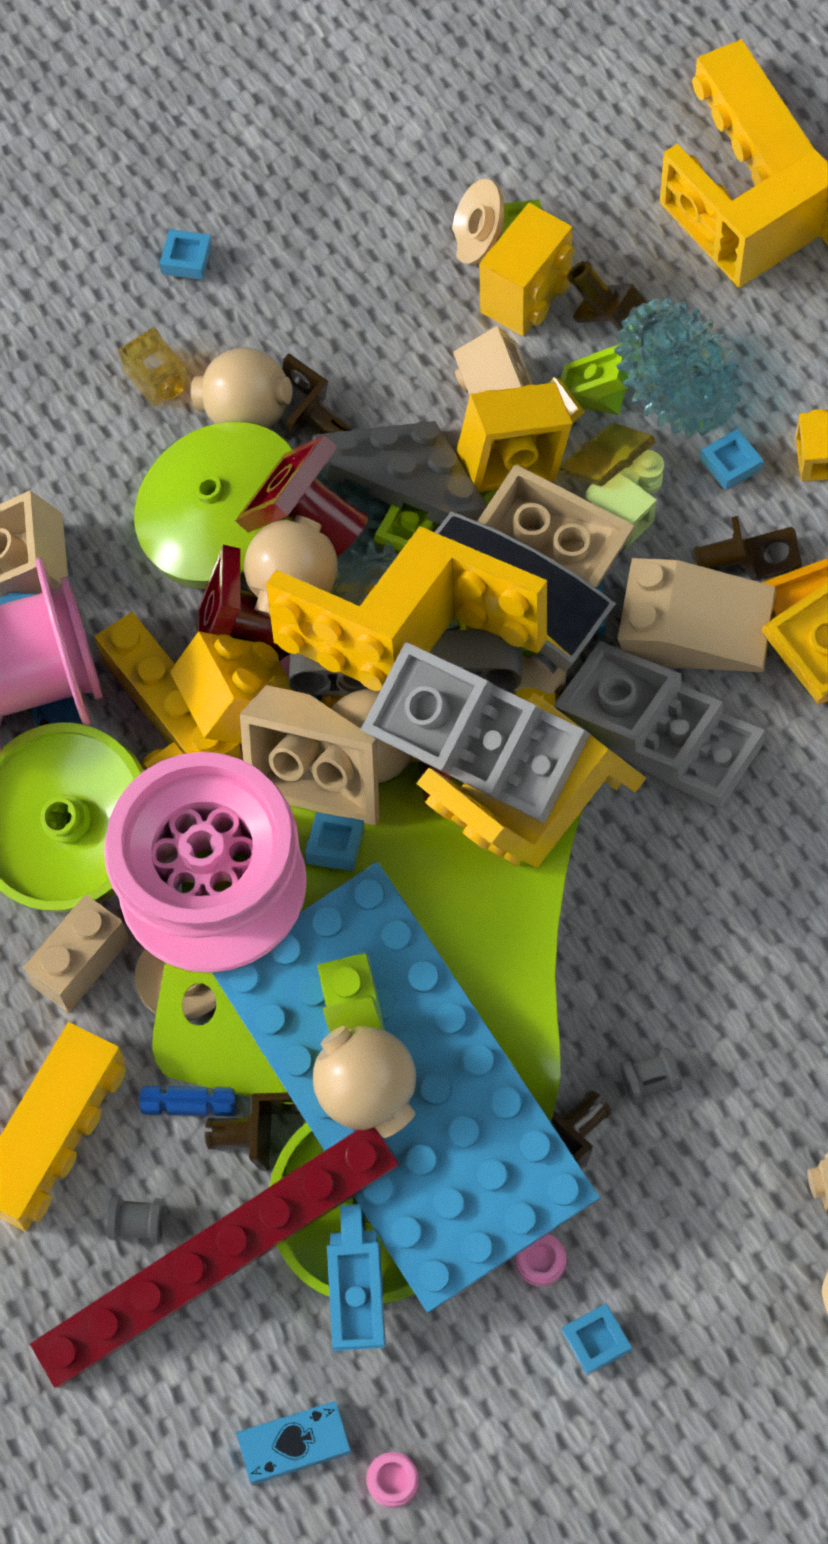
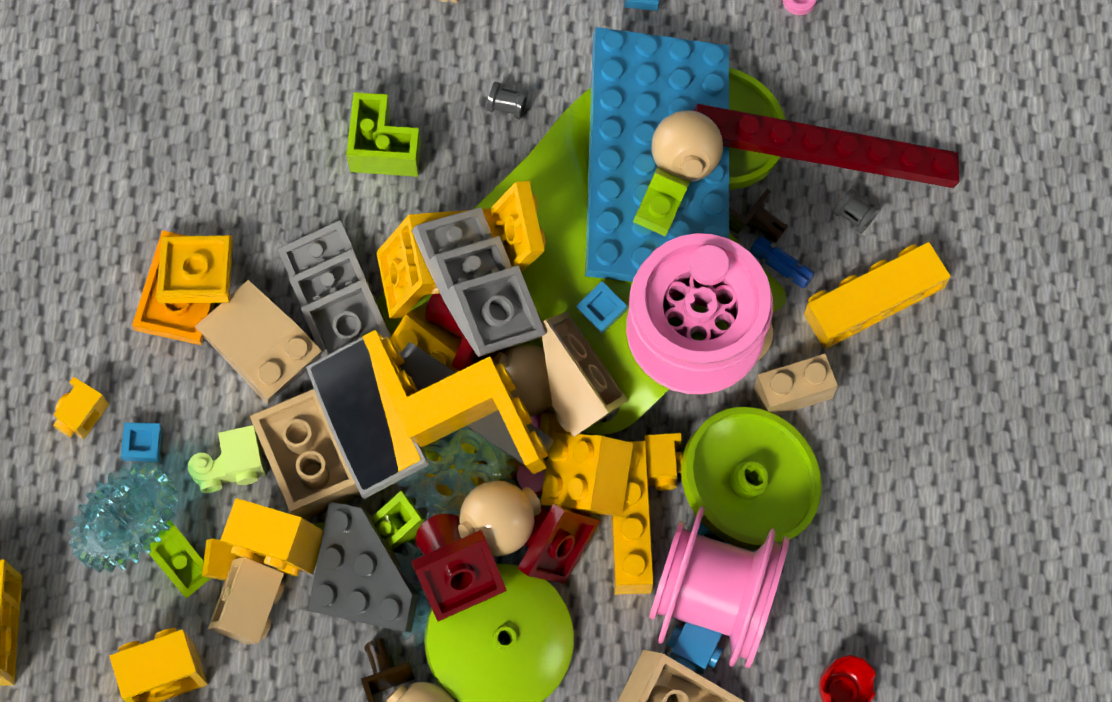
camera: 150 degrees left, 5 degrees up
(212, 868) = (709, 265): none -> bright pink tile
(293, 1443) = (841, 47): dark azure tile -> none
(355, 1284) = (759, 80): dark azure hinge -> none
(579, 1123) = (559, 103): dark brown bracket -> none
(601, 300) = (122, 612): dark brown bracket -> none
(607, 454) = (214, 490): clear yellow piece -> none
(750, 552) = (188, 371): dark brown bracket -> none
(755, 906) = (375, 145): none -> lime brick

